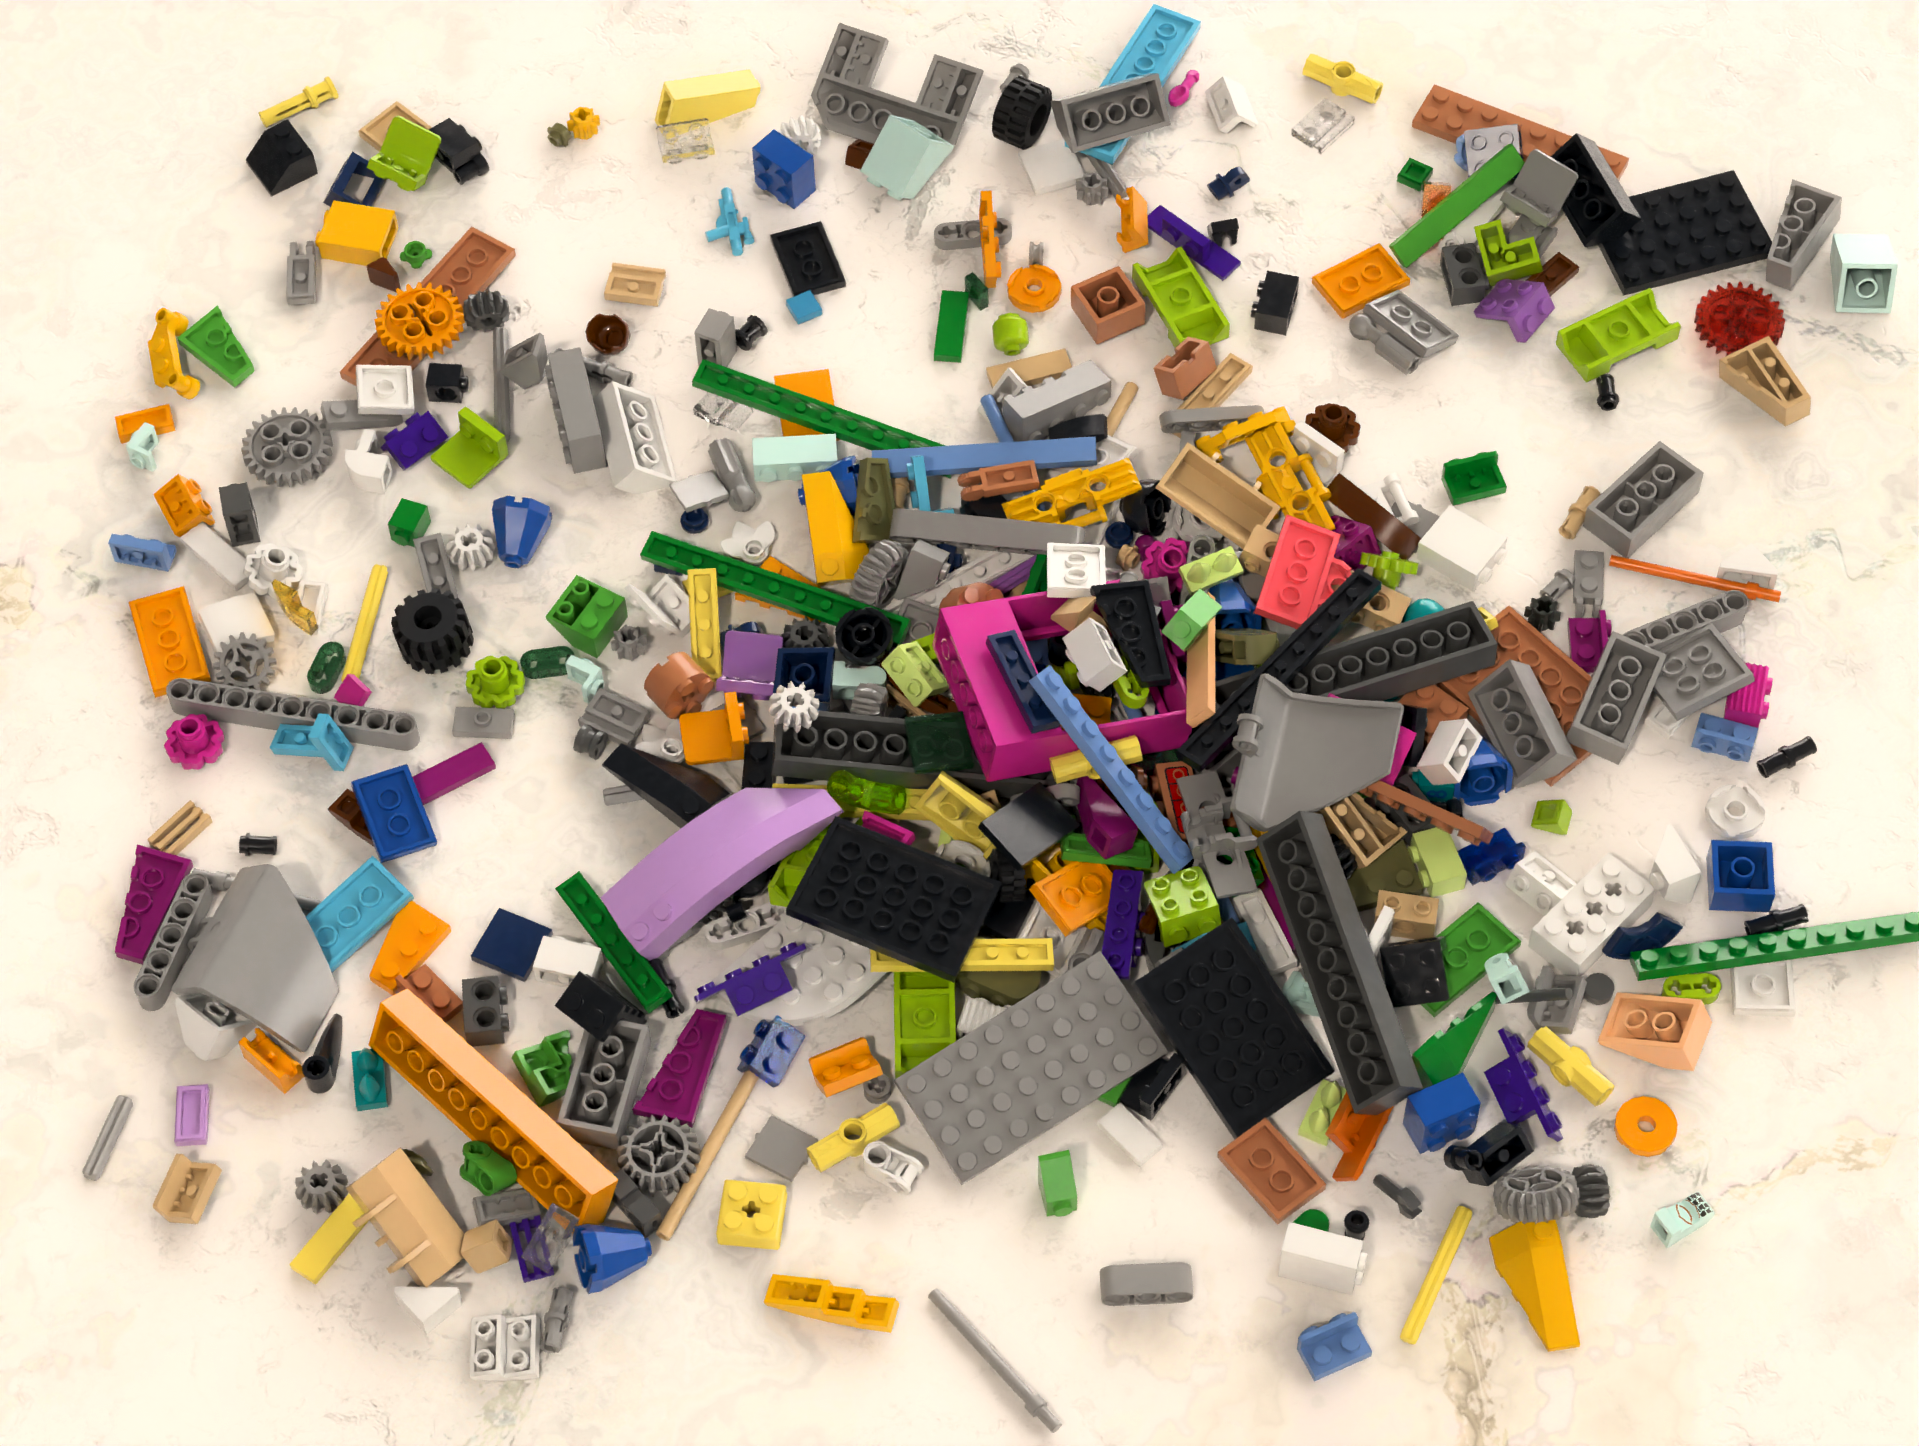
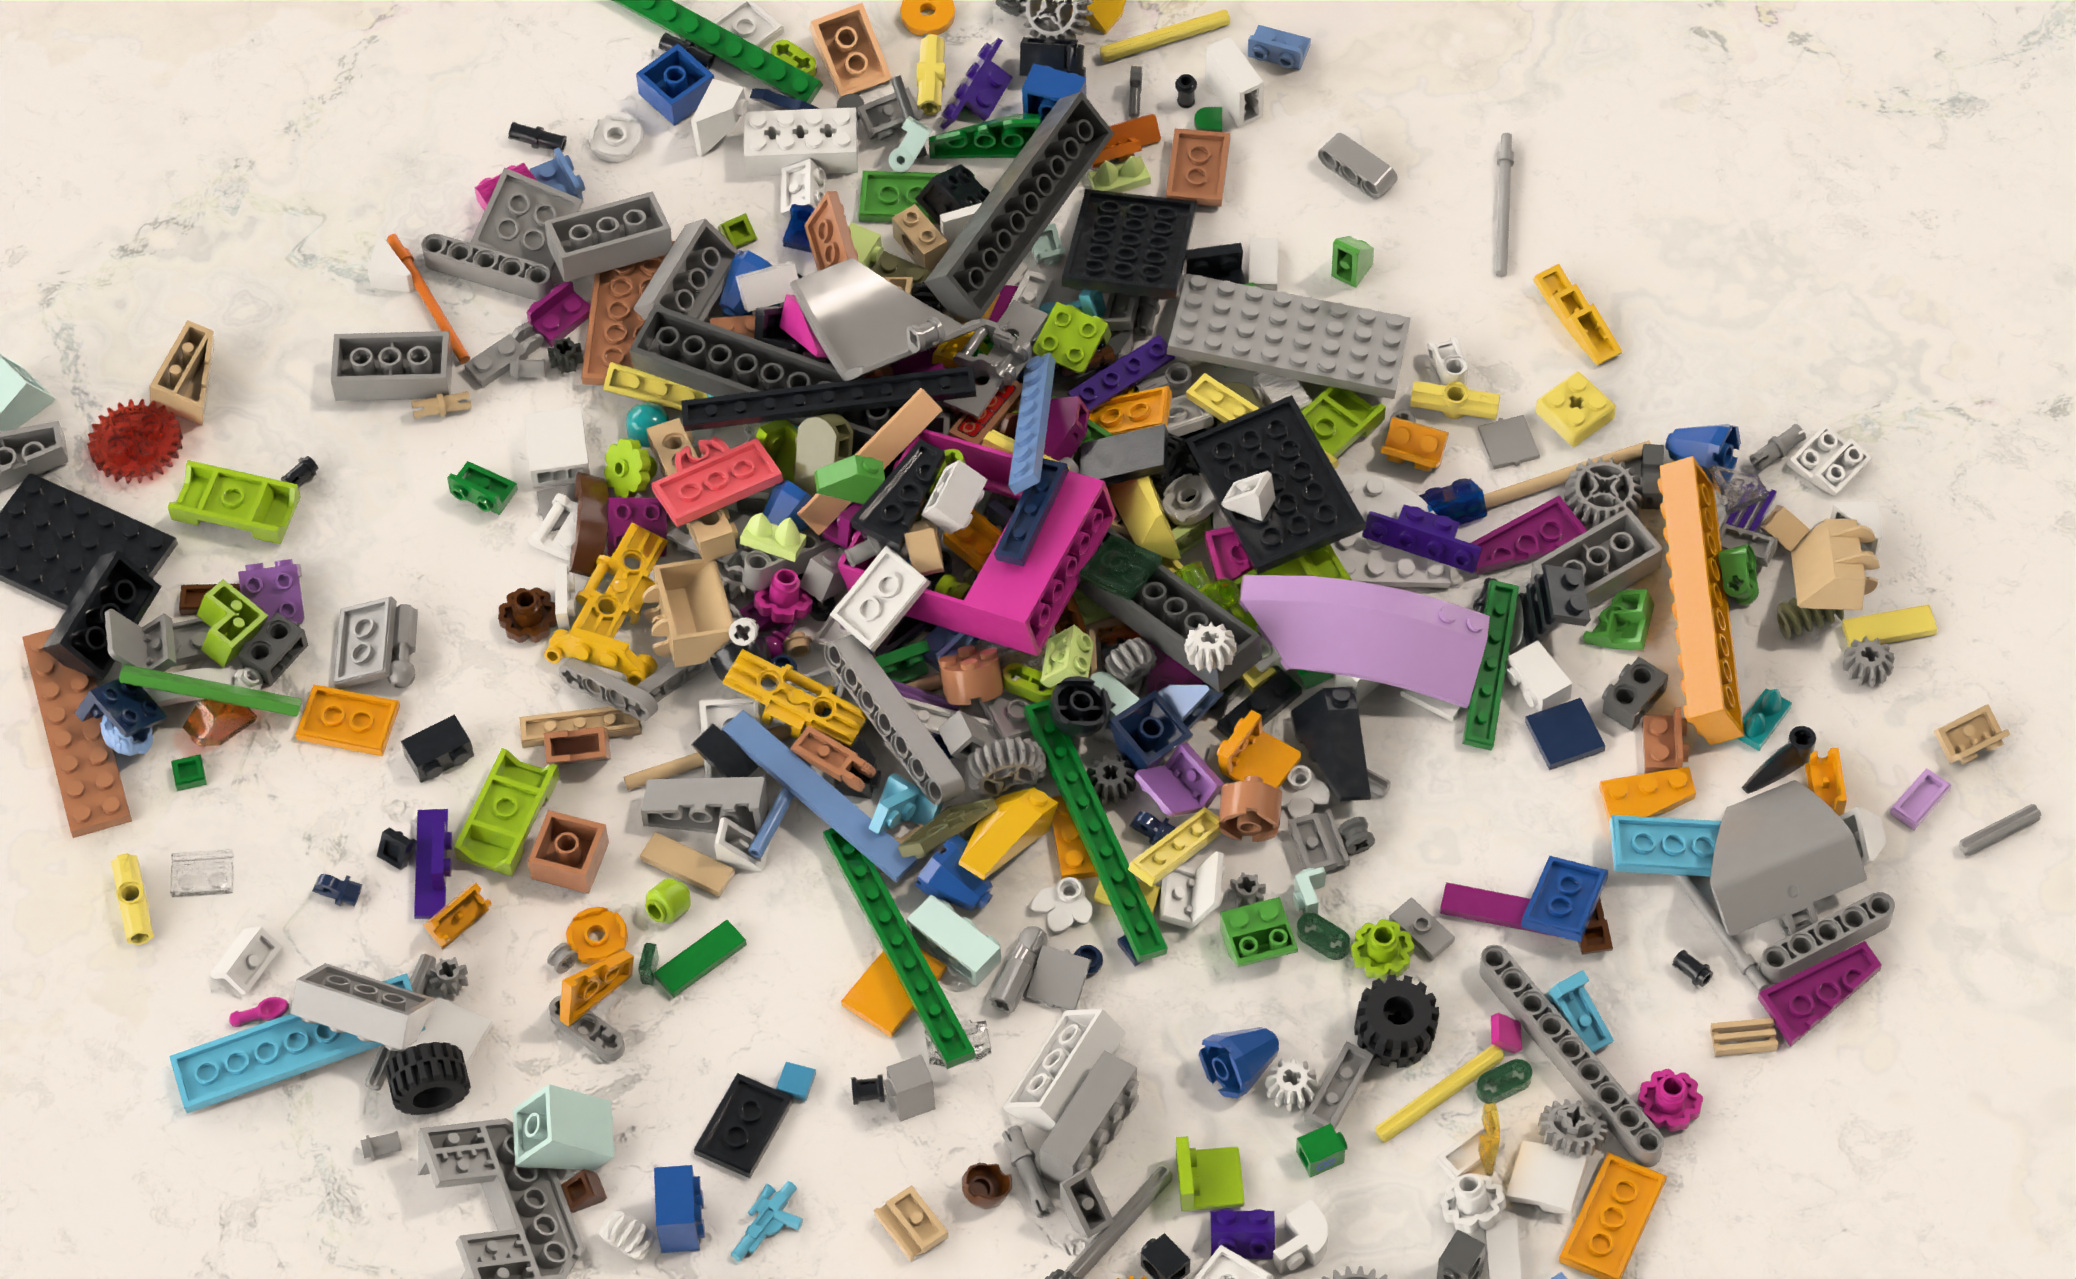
camera: 135 degrees left, 0 degrees up
(893, 856) = (1251, 496): none -> white slope
(1148, 488) = (738, 636): none -> white pin

